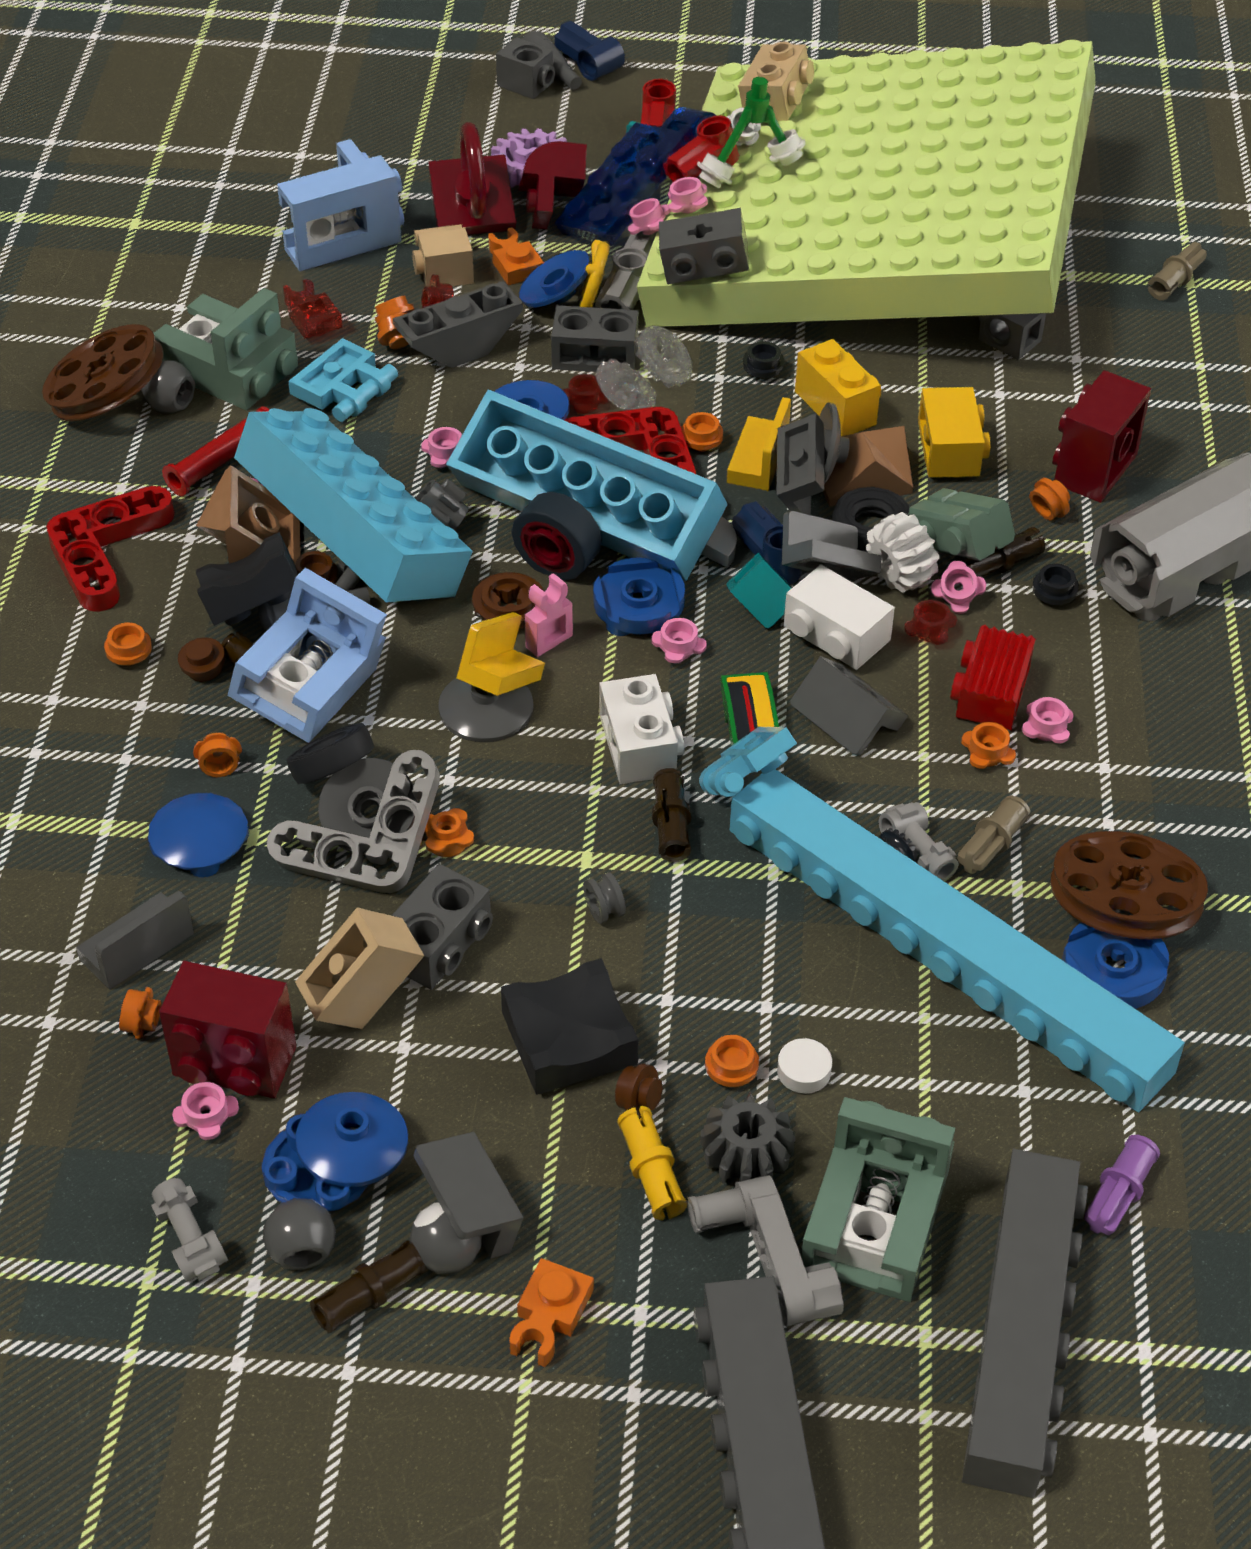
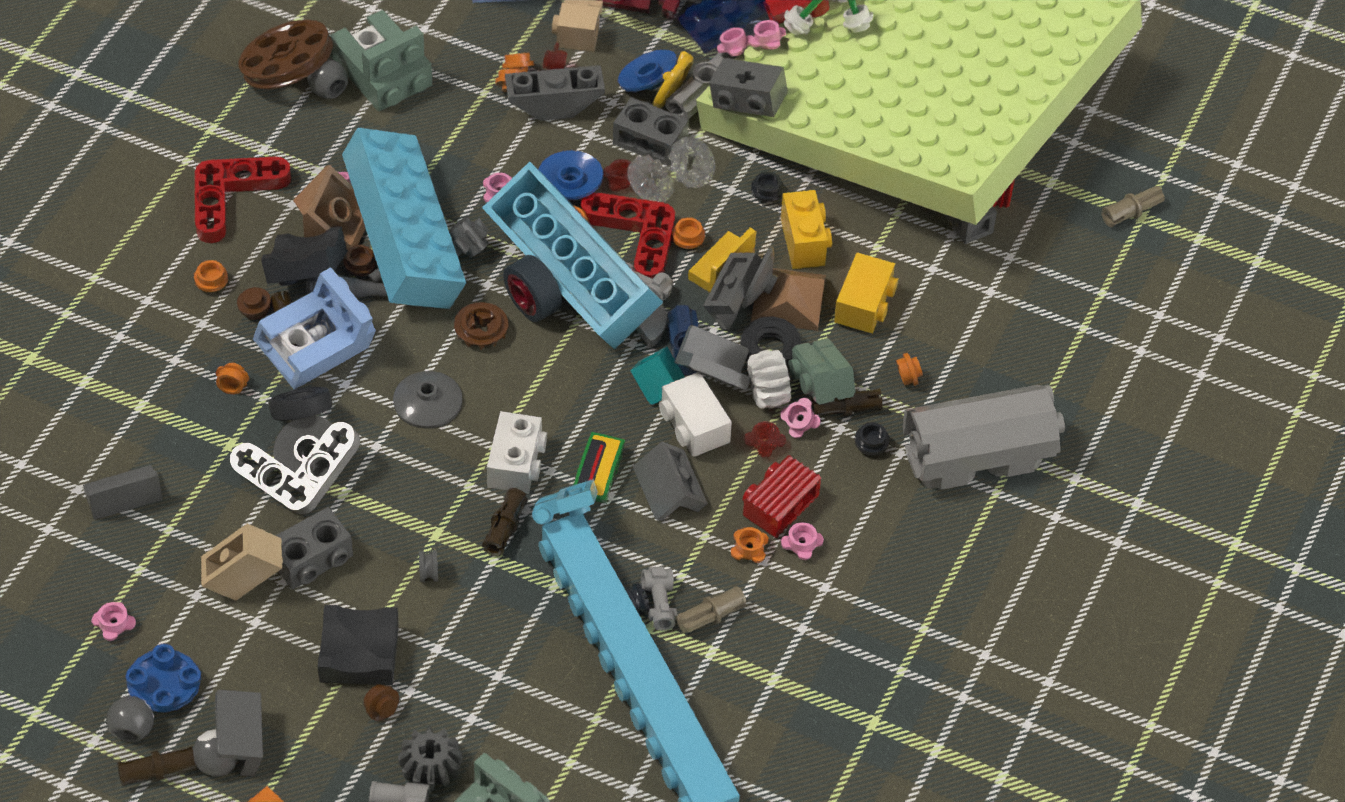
camera: 20 degrees right, 5 degrees up
(139, 1012) = (102, 542): orange plate -> none
(198, 832) = (195, 430): blue dish -> none
(199, 1253) = (69, 709): light grey bar -> none
(204, 460) = (333, 144): red pin -> none
(228, 1029) = (144, 574): dark red brick -> none
(311, 312) = (459, 43): clear red plate -> none
(334, 373) = (450, 102): medium azure plate -> none
(356, 1155) = (192, 682): blue dish -> none
(448, 833) = (356, 491): orange plate -> none
(491, 658) = (442, 369): yellow panel -> none
(513, 259) = (632, 39): orange plate -> none
(551, 617) = (496, 350): bright pink plate -> none
(629, 615) = (567, 367): blue plate -> none
(652, 1163) = (365, 751): yellow pin -> none
(678, 640) = (580, 387): bright pink plate -> none
(732, 1061) = (451, 704): orange plate -> none
(804, 1065) = (497, 723): white tile -> none
(1100, 435) = (969, 332): dark red brick -> none
(1128, 885) = (778, 676): reddish brown wedge -> none
(1140, 978) = (744, 745): blue plate -> none

